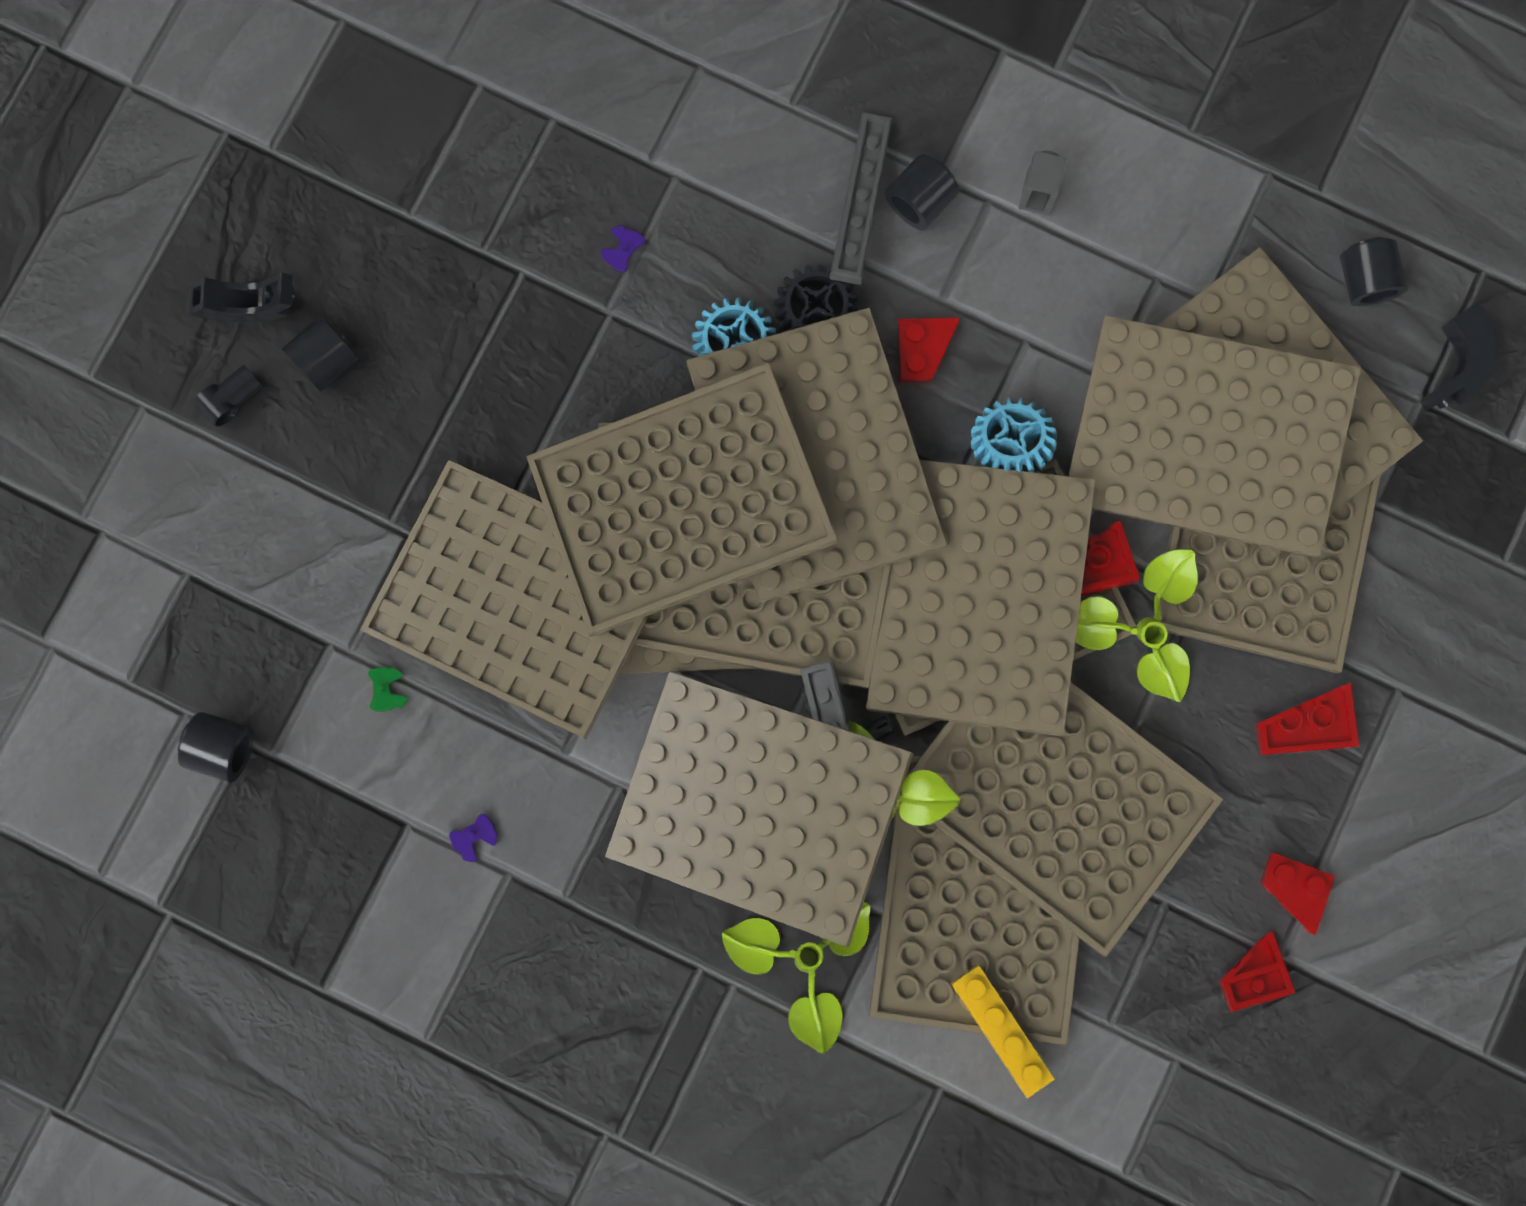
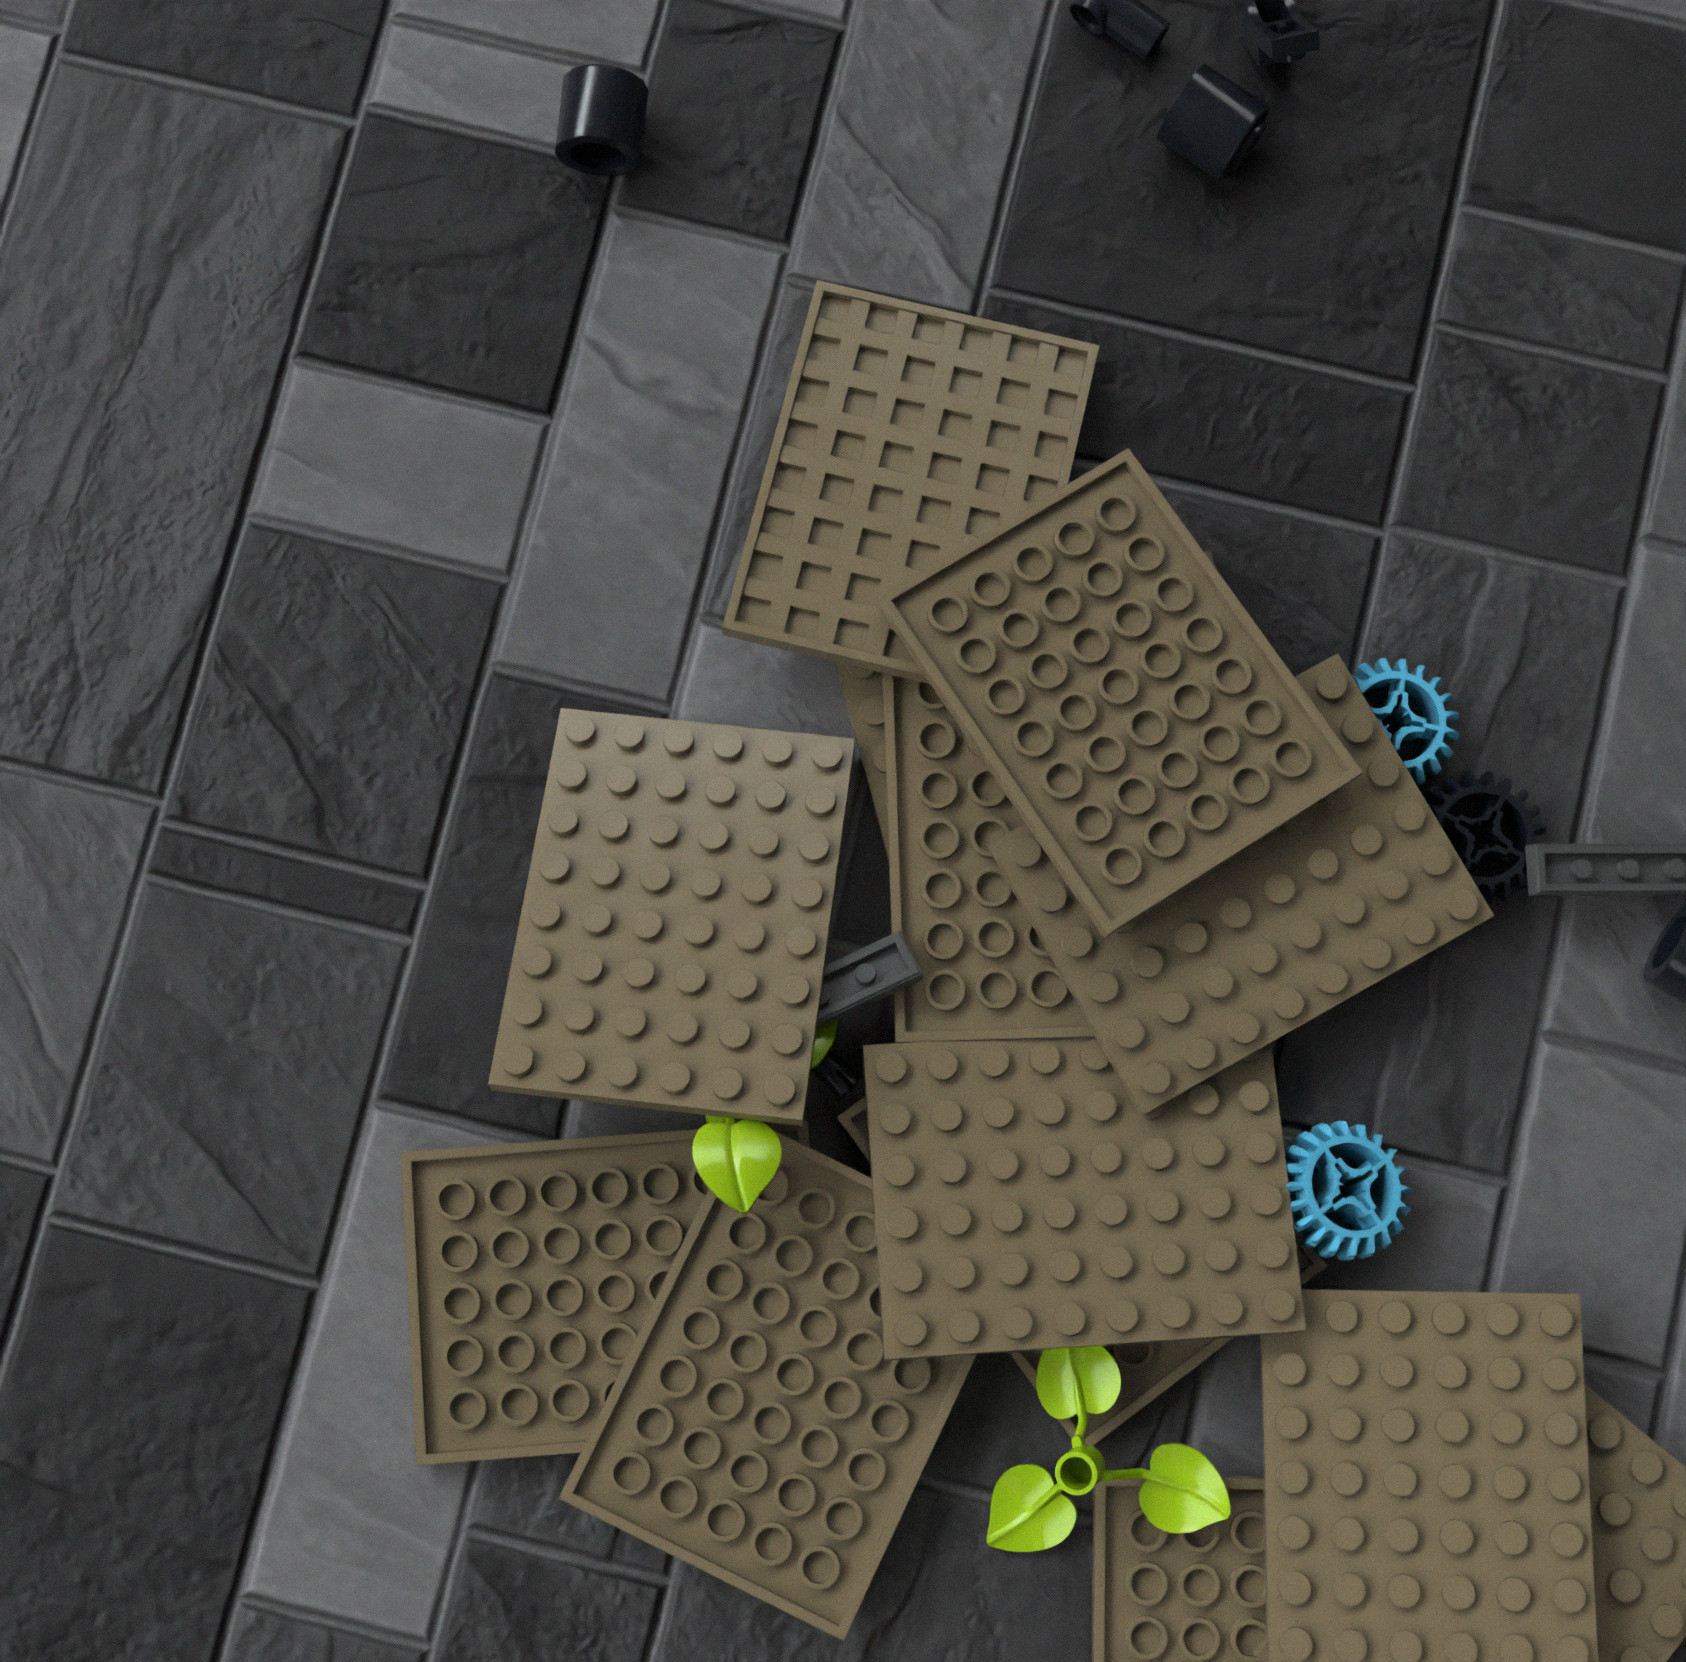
camera: 80 degrees right, 0 degrees up
(383, 700) = (723, 338): green piece -> none
(481, 829) = (543, 500): dark purple piece -> none
(629, 241) = (1475, 524): dark purple piece -> none
(811, 1019) = (382, 1068): lime plant -> none
(923, 346) = (1456, 1019): red wing -> none
(1002, 1031) = (416, 1359): yellow plate -> none
(1108, 562) = (1180, 1380): red wing -> none

